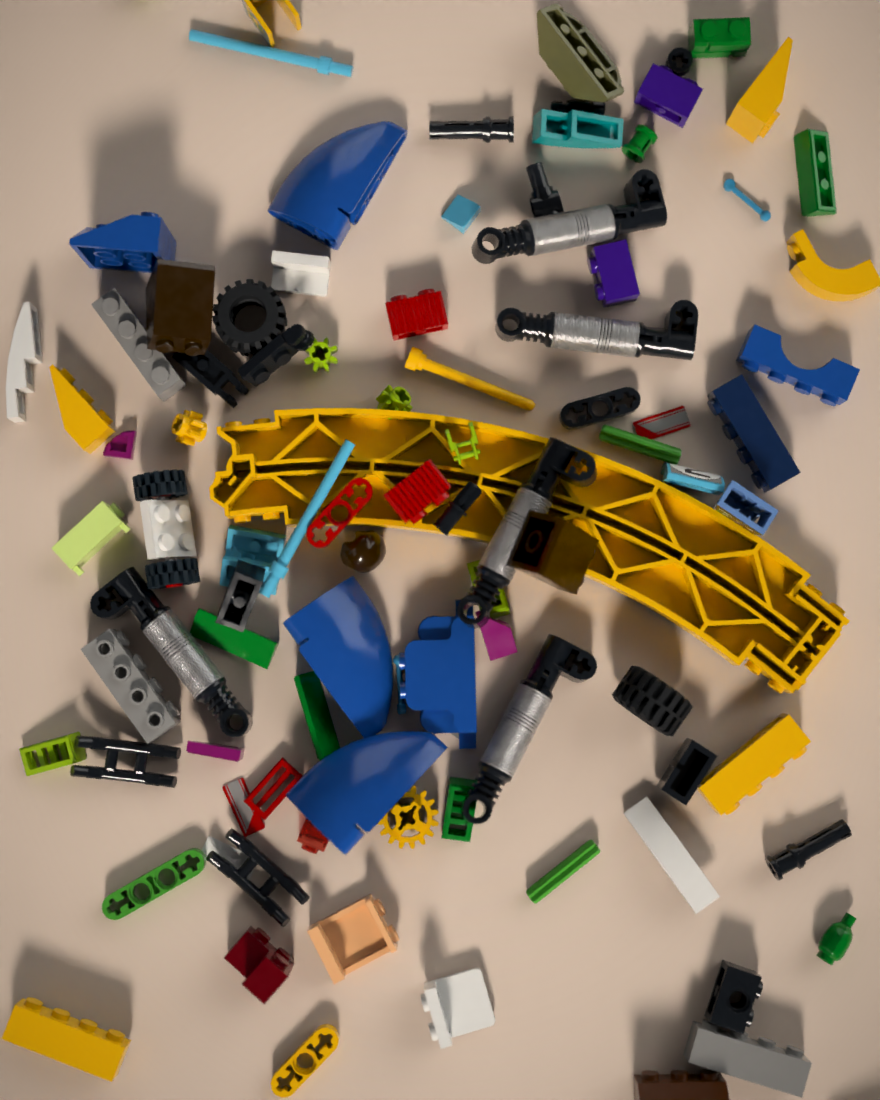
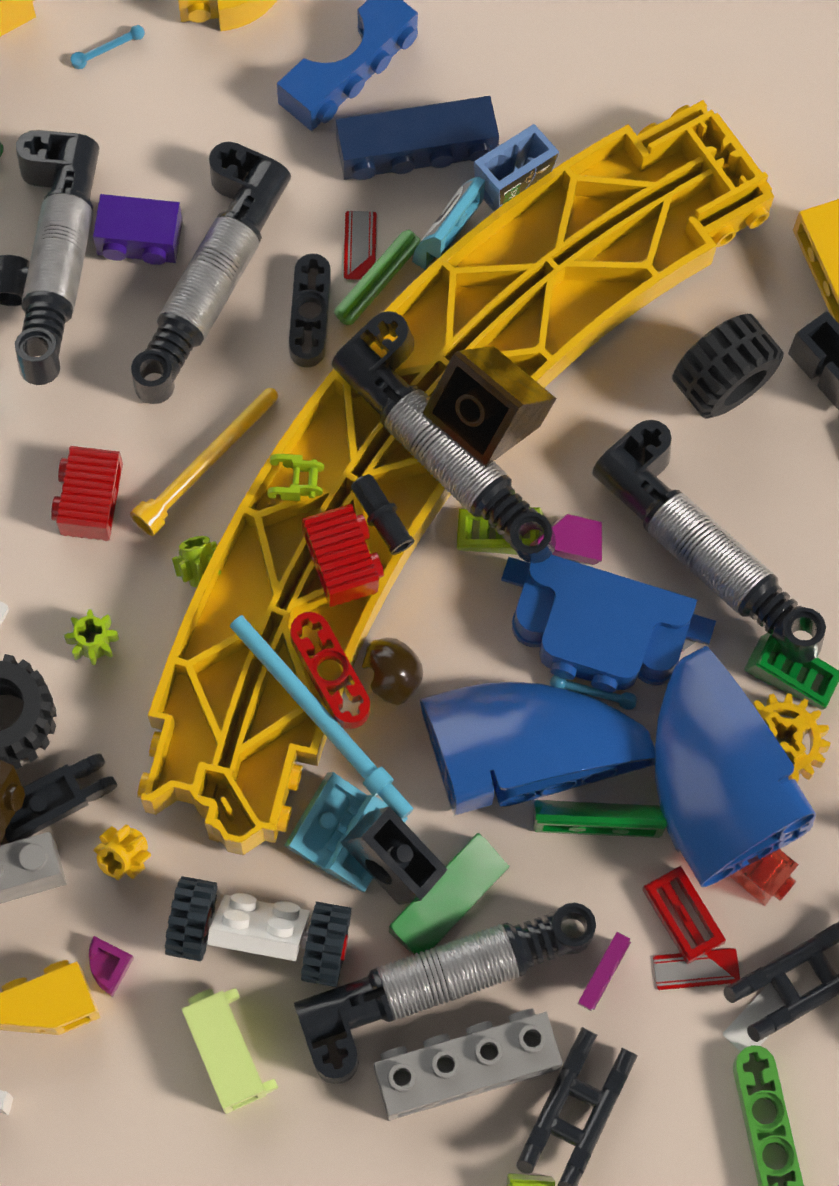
camera: 70 degrees left, 15 degrees down
(276, 354) = (67, 692): black hinge -> none

